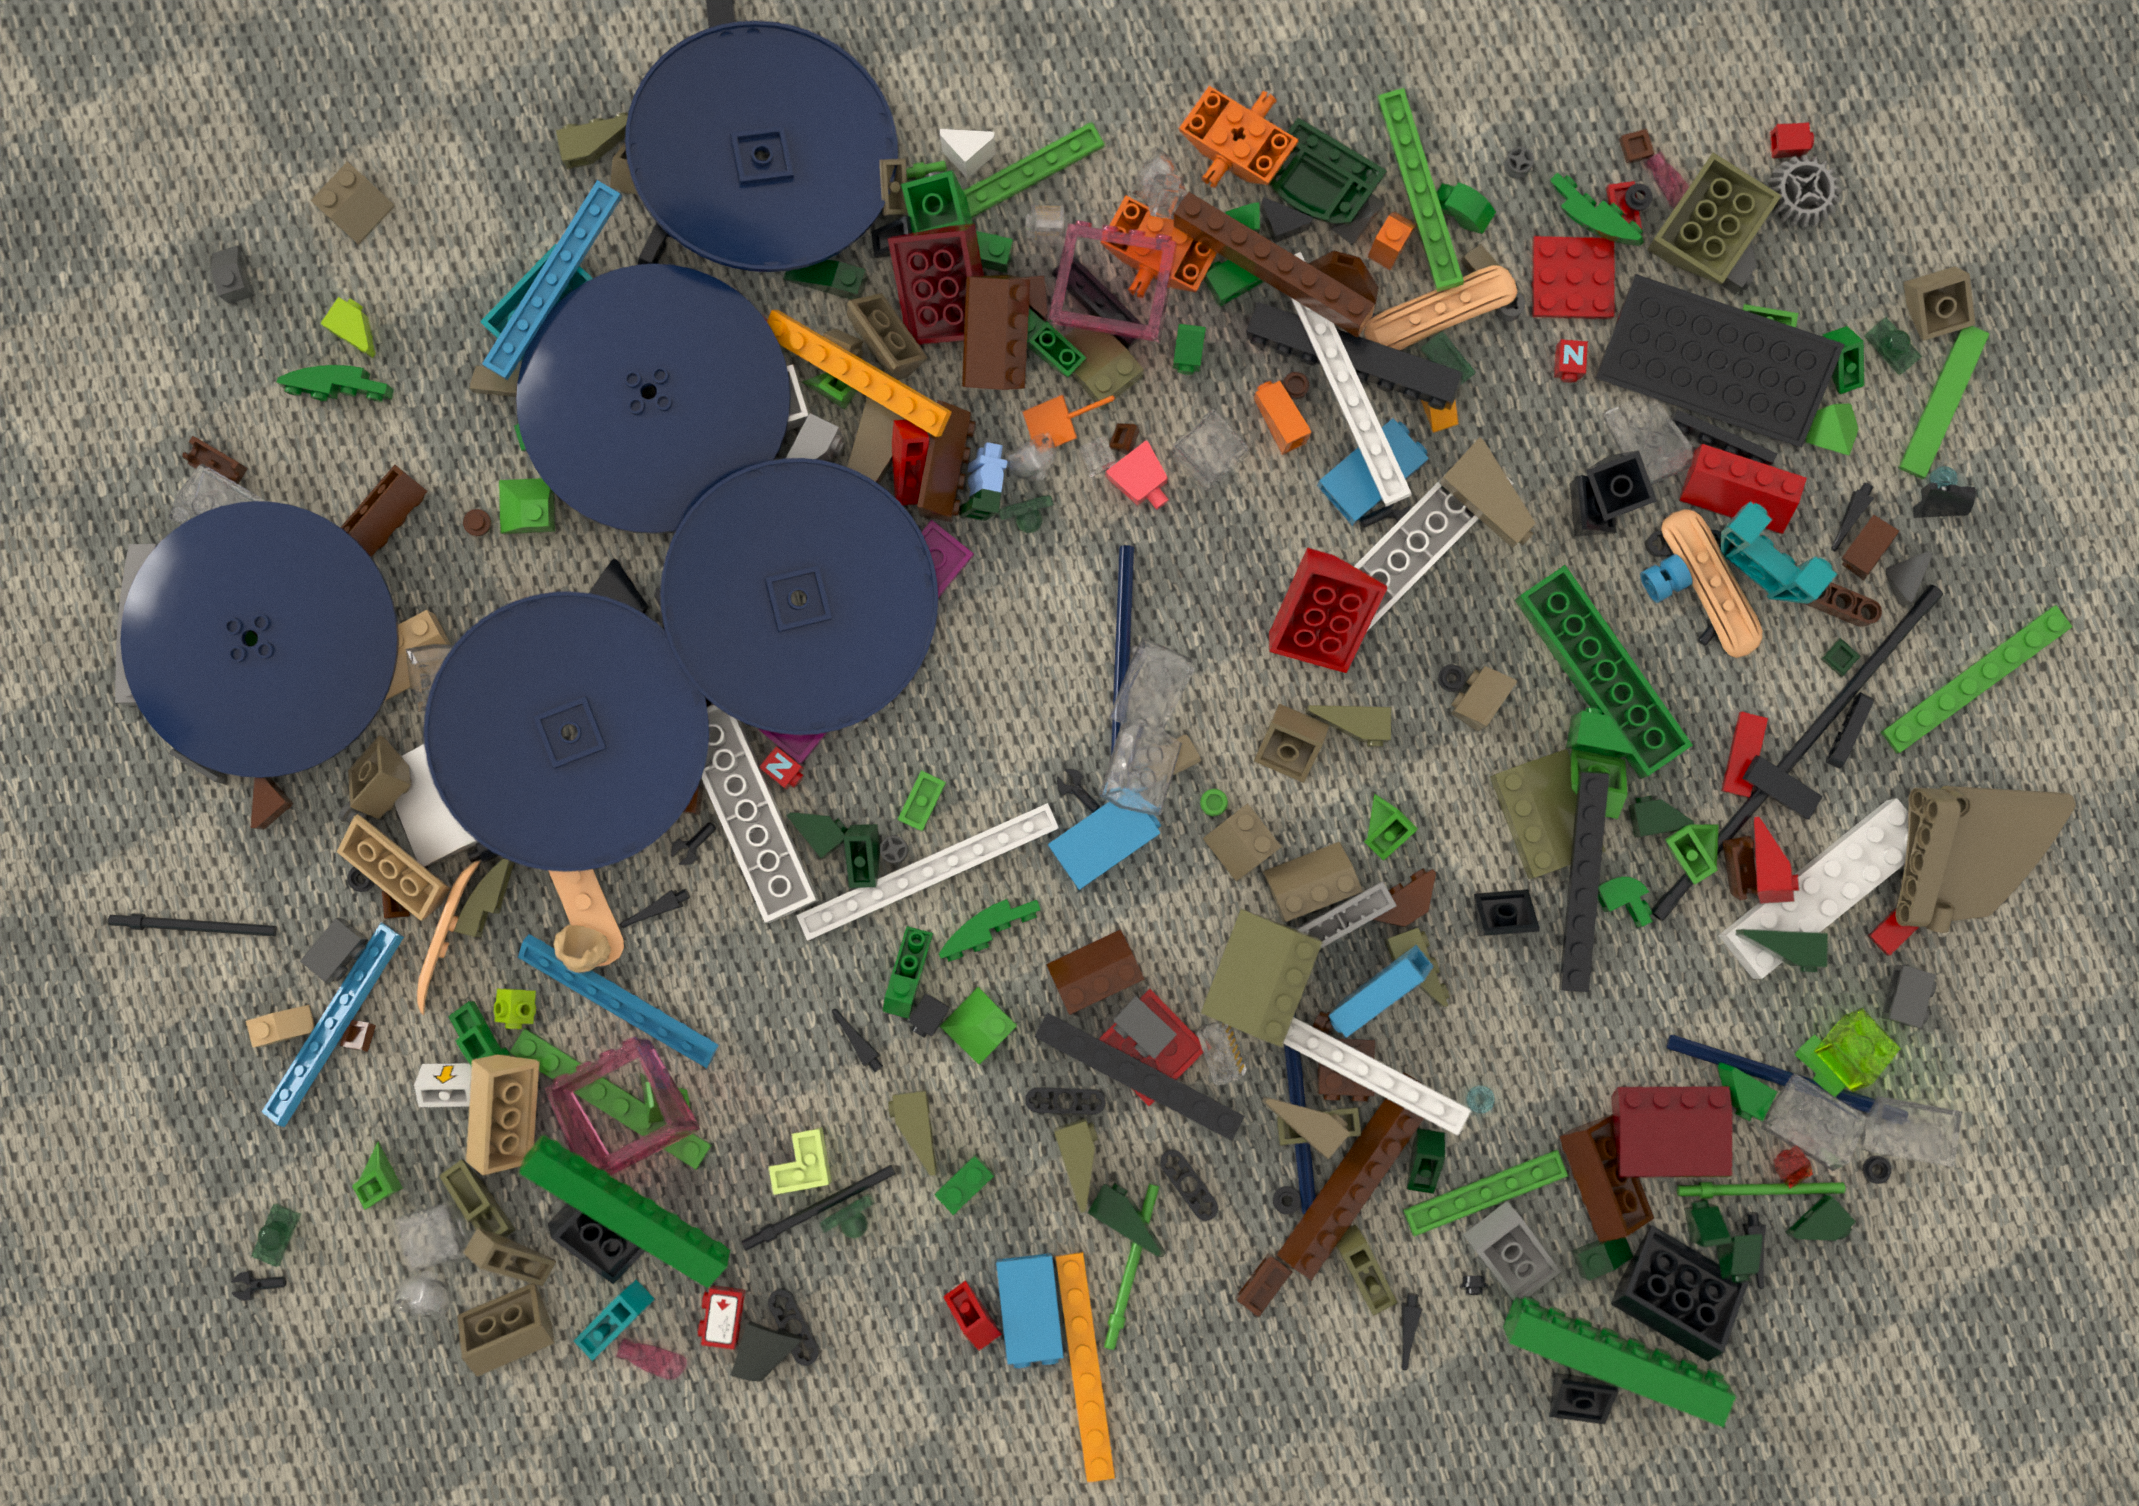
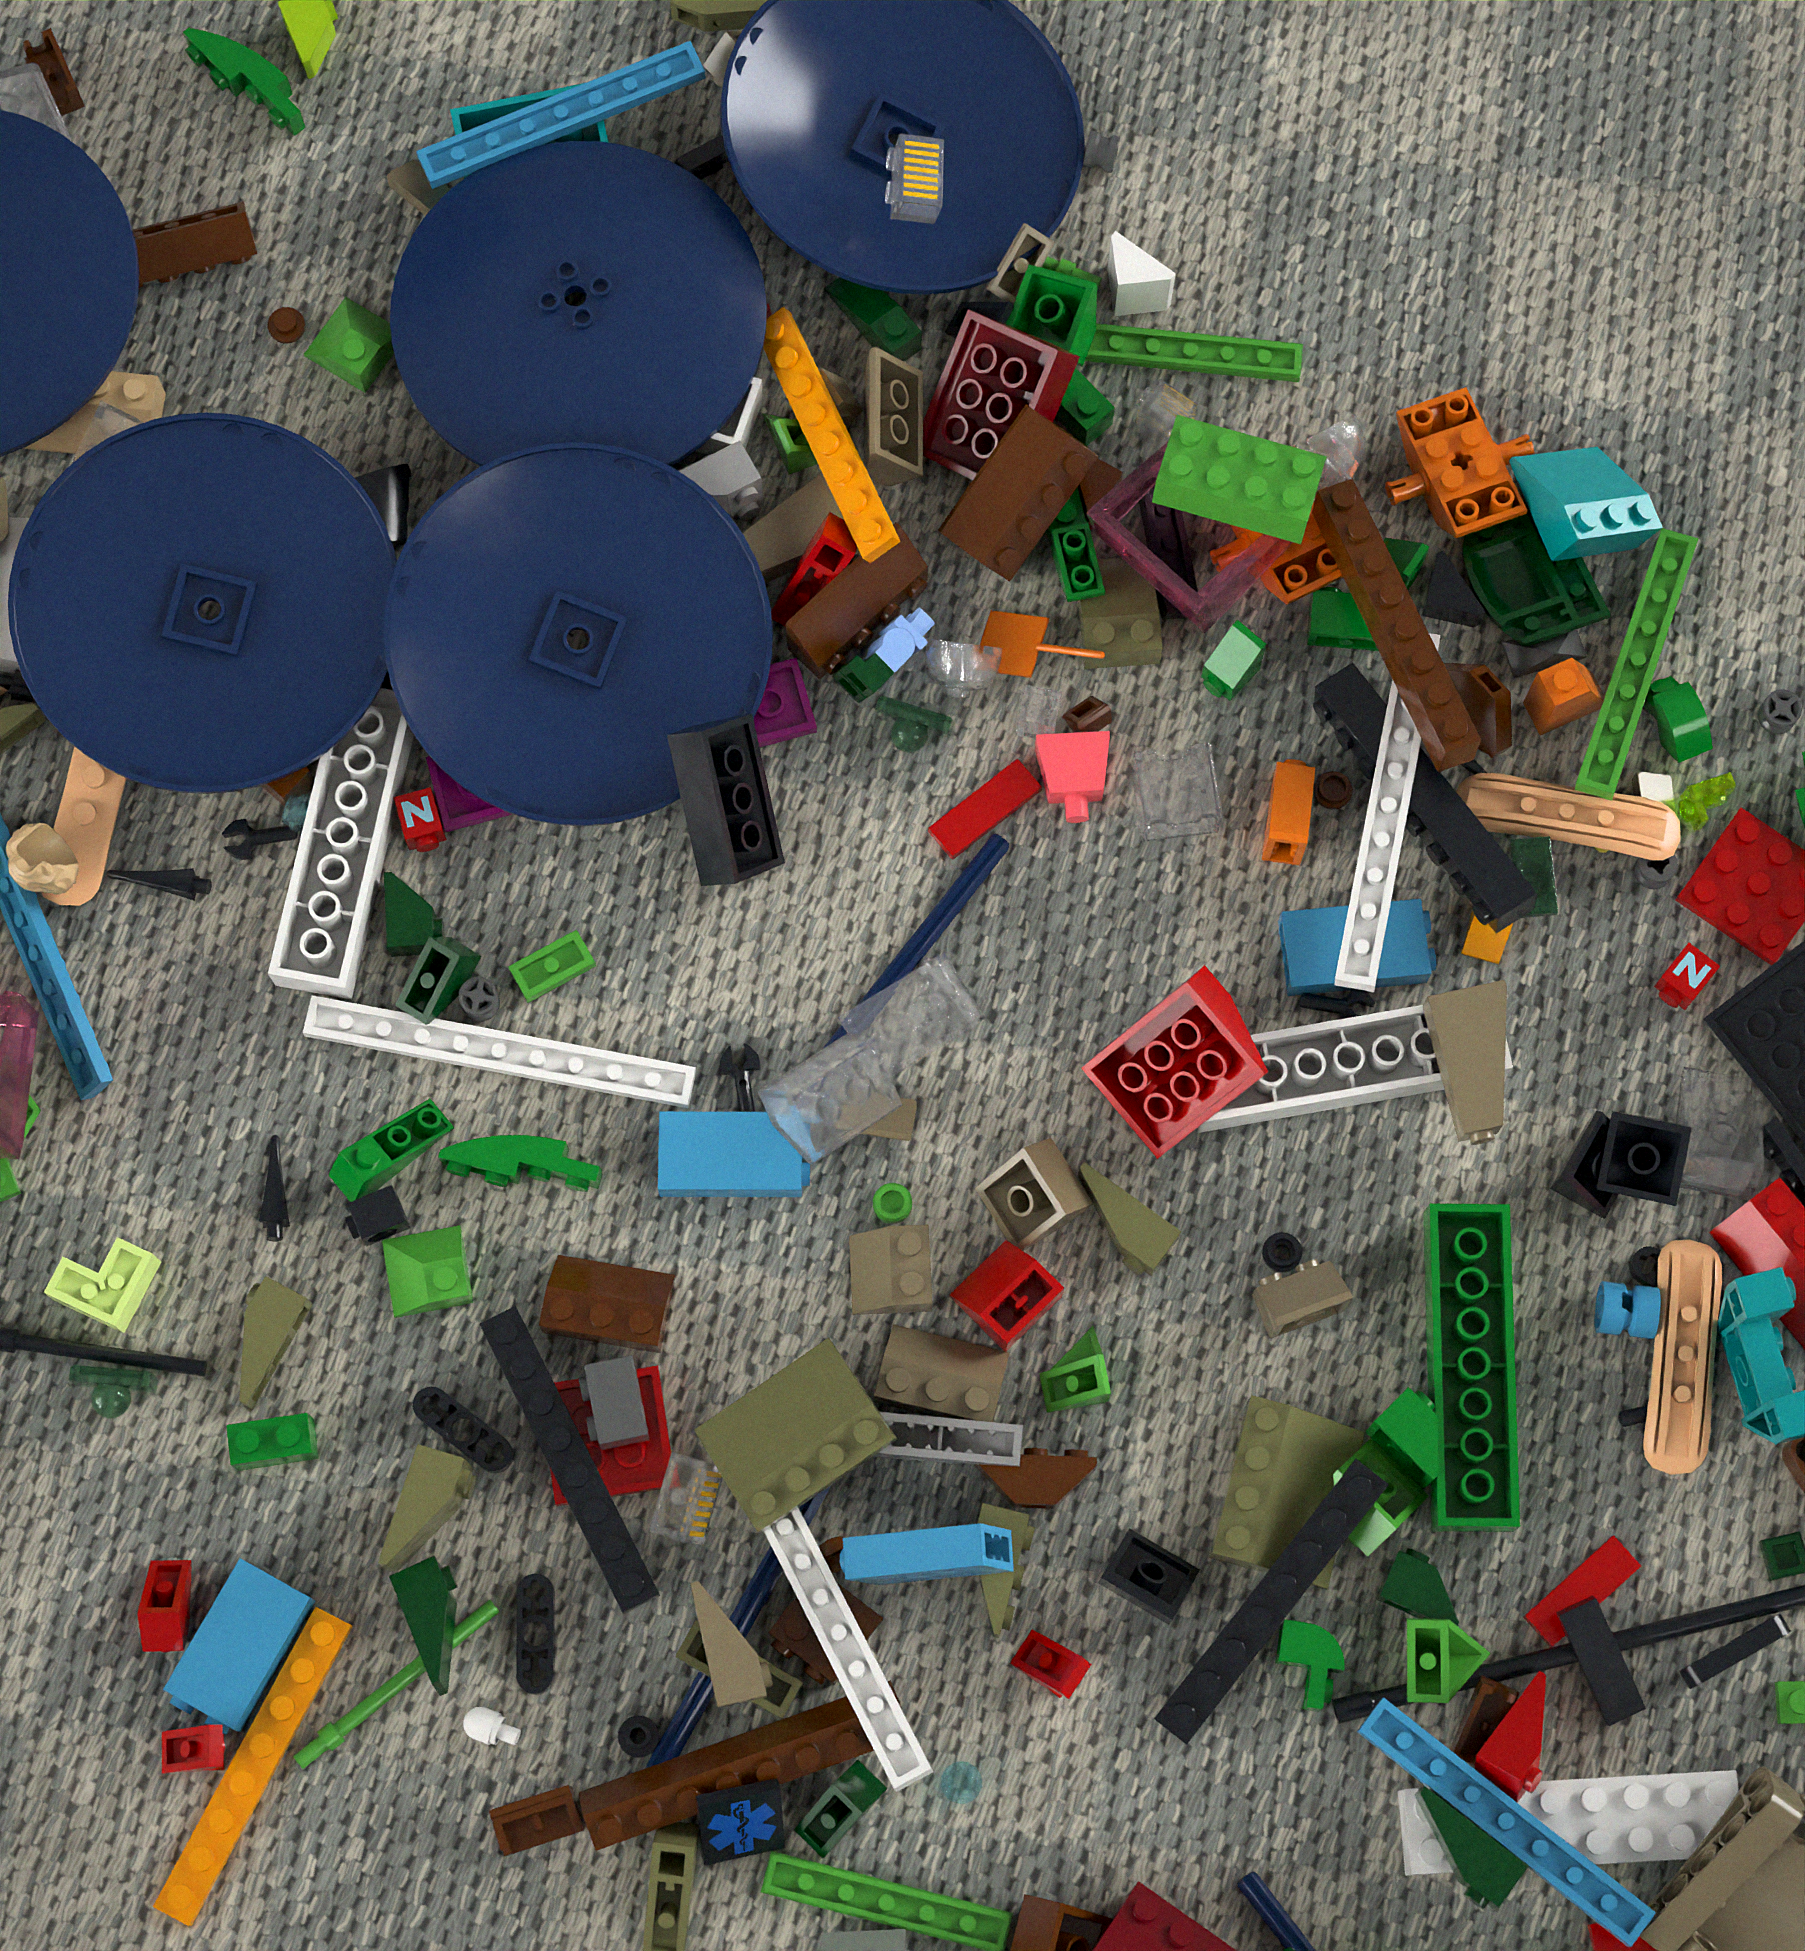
camera: 35 degrees right, 10 degrees down
(707, 814) = (295, 811): none -> clear light blue plate
(797, 176) = (916, 178): none -> clear brick
(889, 80) = (1101, 151): none -> dark grey wheel
(955, 635) = (726, 800): none -> black slope
(1046, 1383) = (193, 1749): none -> red slope
(1103, 534) = (985, 809): none -> red tile
(1126, 238) = (1238, 479): none -> bright green brick
(1200, 1253) = (489, 1727): none -> white cylinder
(1317, 810) = (1007, 1294): none -> red slope
(1324, 110) = (1584, 503): none -> teal slope
(1379, 1208) = (740, 1821): none -> black tile
(1485, 1000) = (1050, 1664): none -> red slope
(1506, 250) = (1708, 793): none -> clear neon green bracket
(1796, 915) = (1506, 1822): none -> dark azure plate

